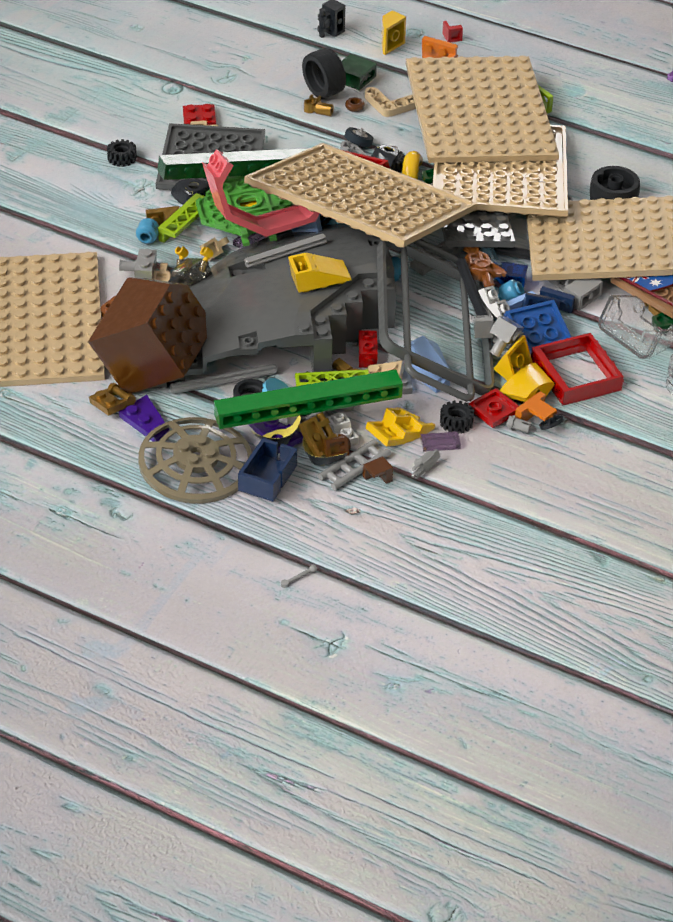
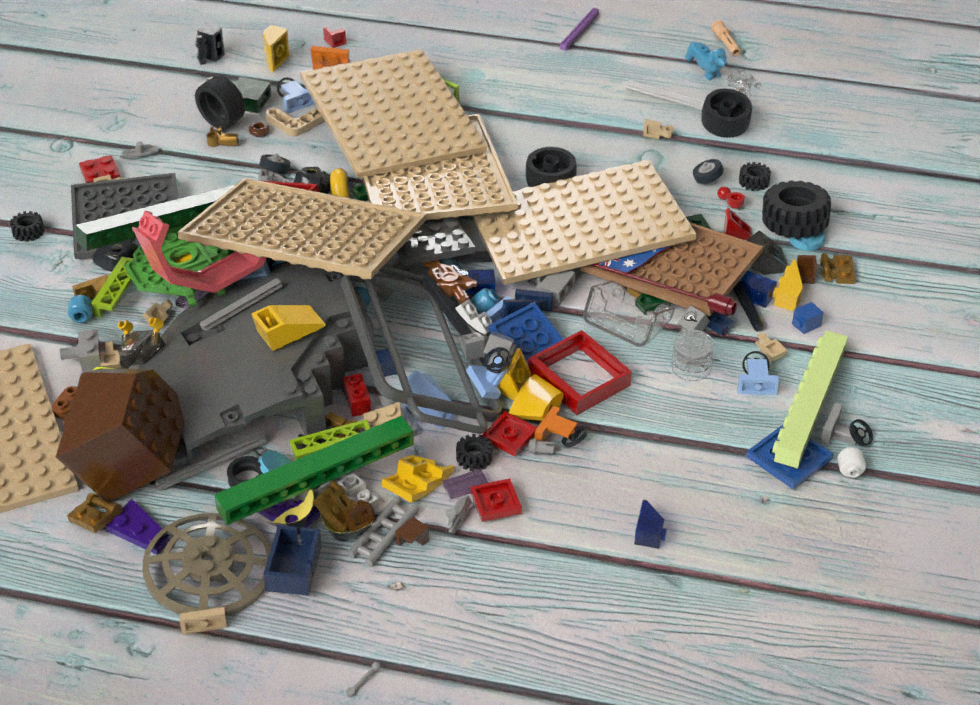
camera: 15 degrees left, 0 degrees up
(178, 501) = (203, 620): none -> tan plate
(240, 105) = (139, 151): none -> light grey piece
(396, 328) = (386, 362): none -> dark blue panel
(398, 79) = (297, 95): none -> light blue piece
(462, 459) = (496, 500): none -> red plate
(489, 355) = (488, 380): none -> light blue piece
(591, 509) = (649, 527): none -> clear blue slope

